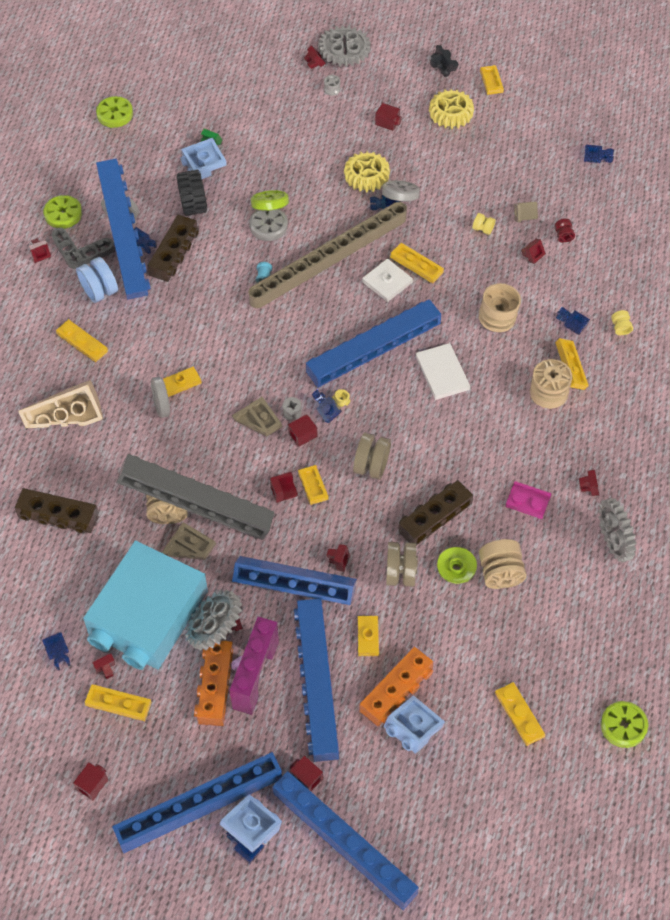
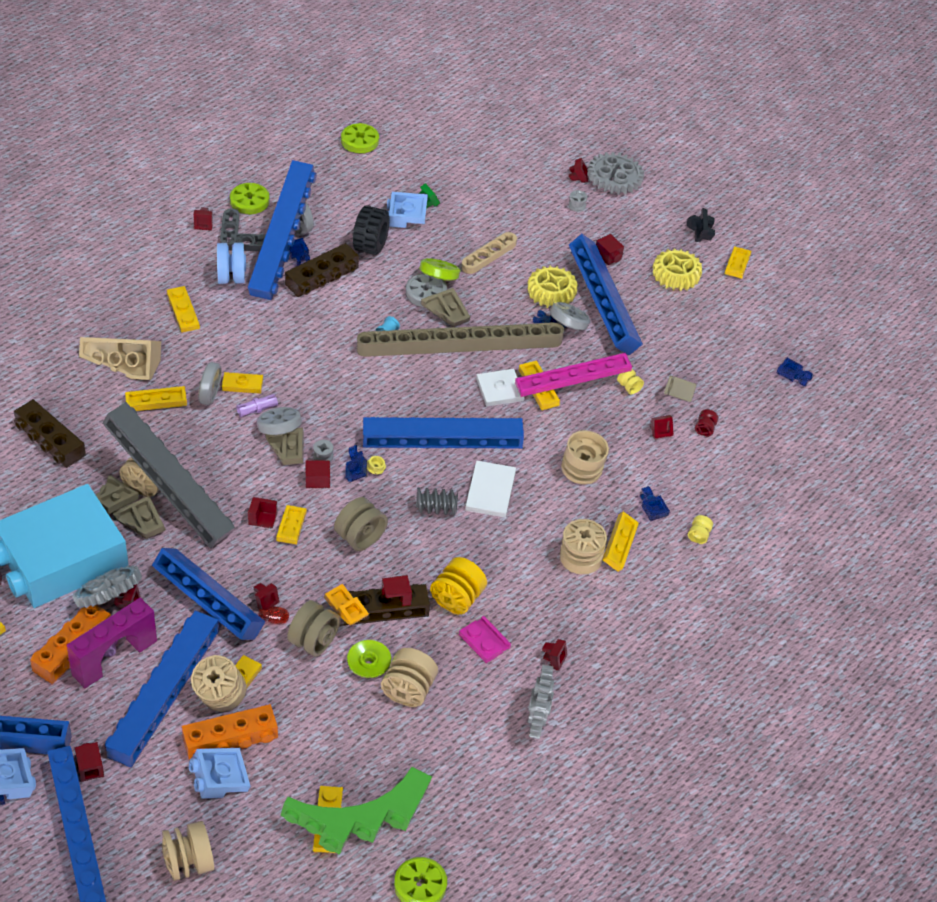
camera: 25 degrees right, 10 degrees down
(121, 433) = (157, 398): none -> yellow plate
(153, 534) = (116, 495): none -> dark tan wing
(208, 395) = (257, 405): none -> lavender pin
(239, 400) = (279, 421): none -> light grey wheel
(292, 165) = (486, 250): none -> tan beam
(299, 231) = (447, 307): none -> dark tan wing
(356, 568) = (275, 615): none -> clear red cylinder
(375, 655) = (226, 691): none -> tan wheel
(410, 403) = (436, 501): none -> dark grey piece
(413, 532) = (345, 605): none -> light orange slope
(414, 158) = (605, 295): none -> blue brick
(440, 241) = (573, 374): none -> dark pink tile
(442, 802) = (187, 850): none -> tan wheel
(445, 496) = (397, 587): none -> dark red panel
(483, 467) = (458, 585): none -> yellow wheel
(539, 716) = (364, 820): none -> bright green arch

